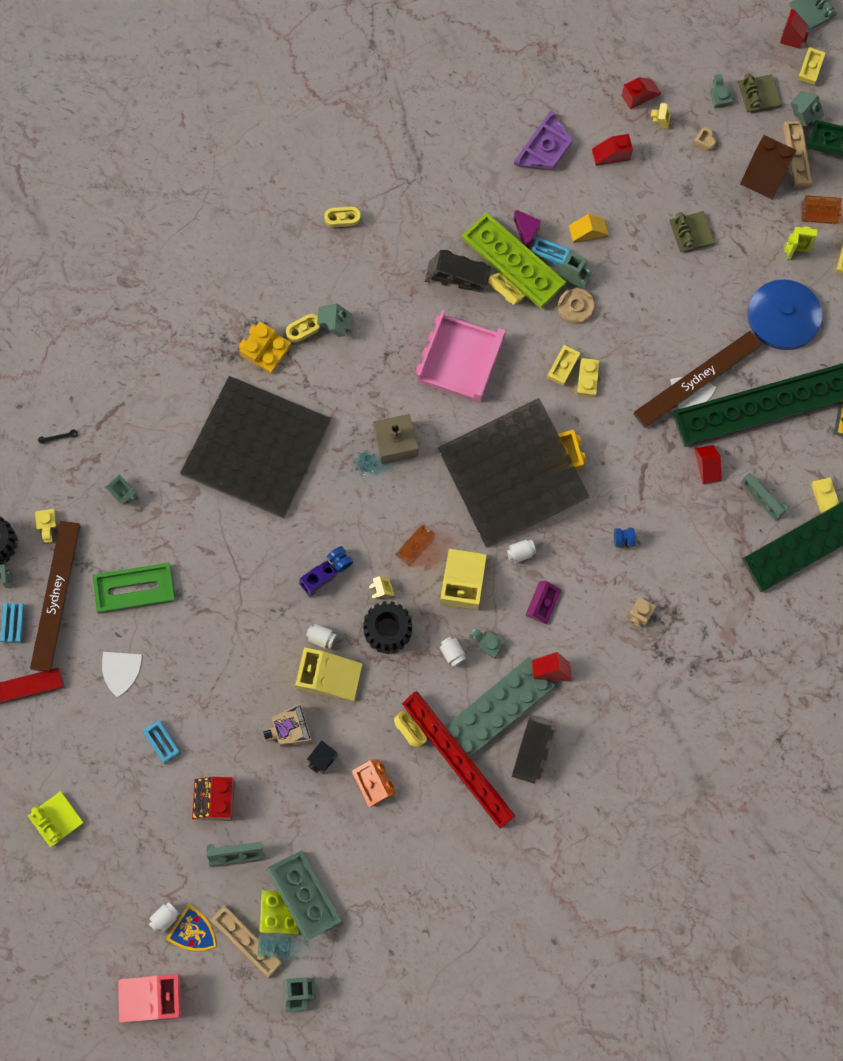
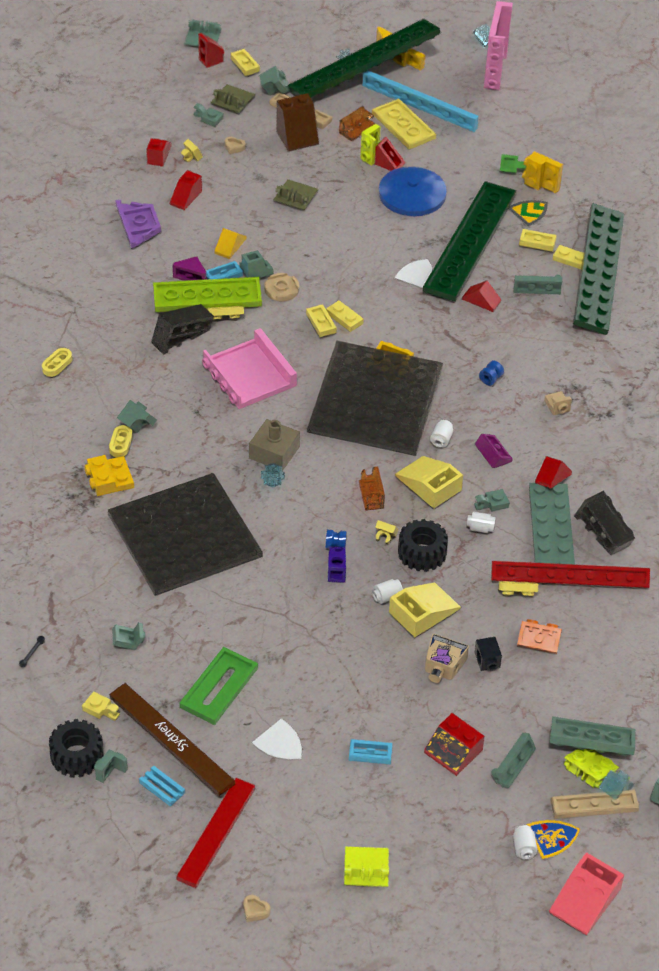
camera: 50 degrees left, 25 degrees down
(697, 379) = (411, 263): reddish brown tile -> none
(804, 264) = (387, 156): none -> red slope
(818, 456) = (537, 240): none -> light yellow plate

